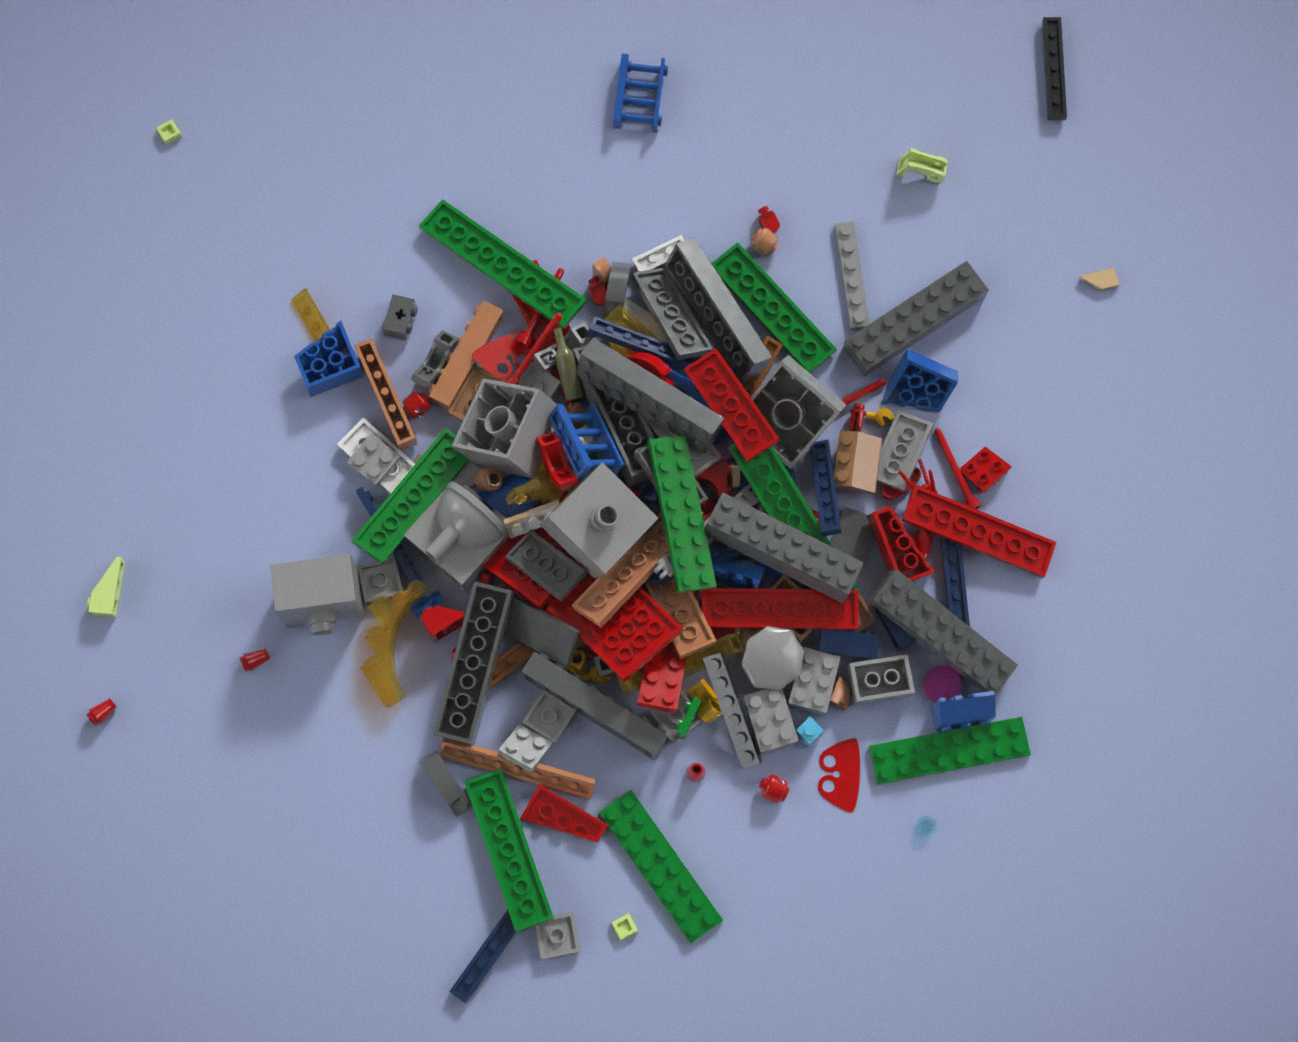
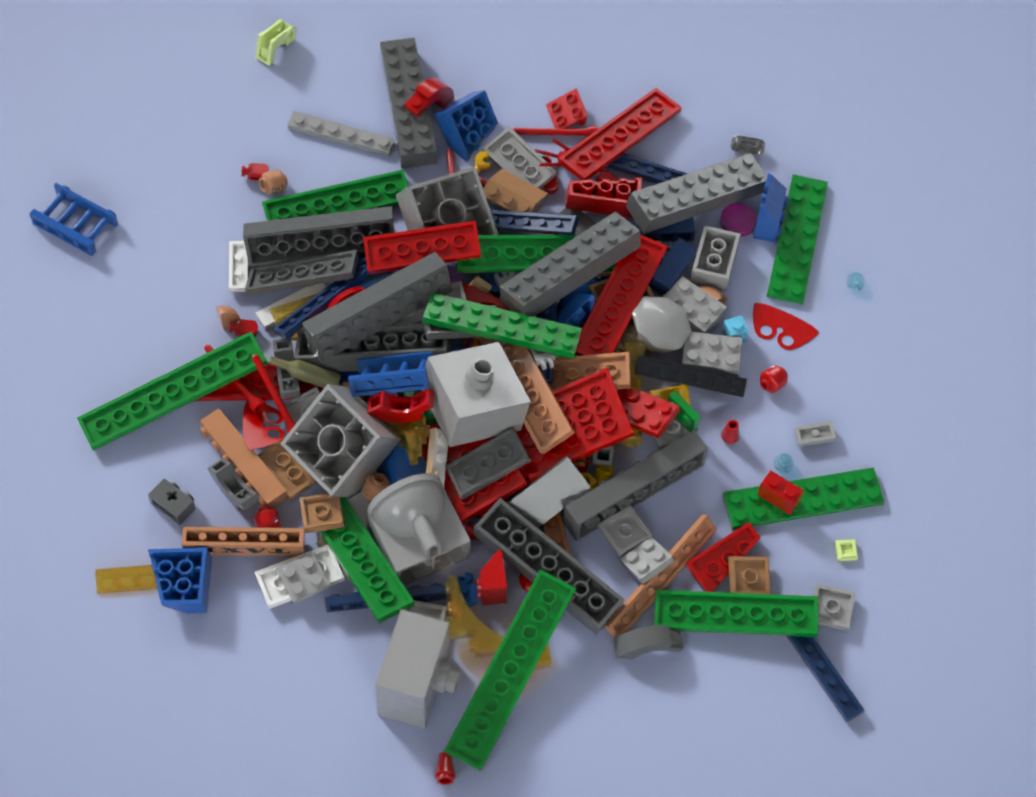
camera: 65 degrees left, 15 degrees down
(361, 673) = (509, 670): none -> green plate
(438, 445) = (321, 513): none -> medium nougat tile
(553, 847) = (749, 574): none -> medium nougat tile
(617, 286) = (252, 307): dark grey arch -> none
(646, 841) = (780, 492): none -> red brick
(689, 827) = (784, 458): none -> clear light blue plate
(733, 851) = (815, 434): none -> light grey plate
(926, 332) = (429, 92): none -> red arch
(1034, 659) = (748, 145): none -> clear smoke beam

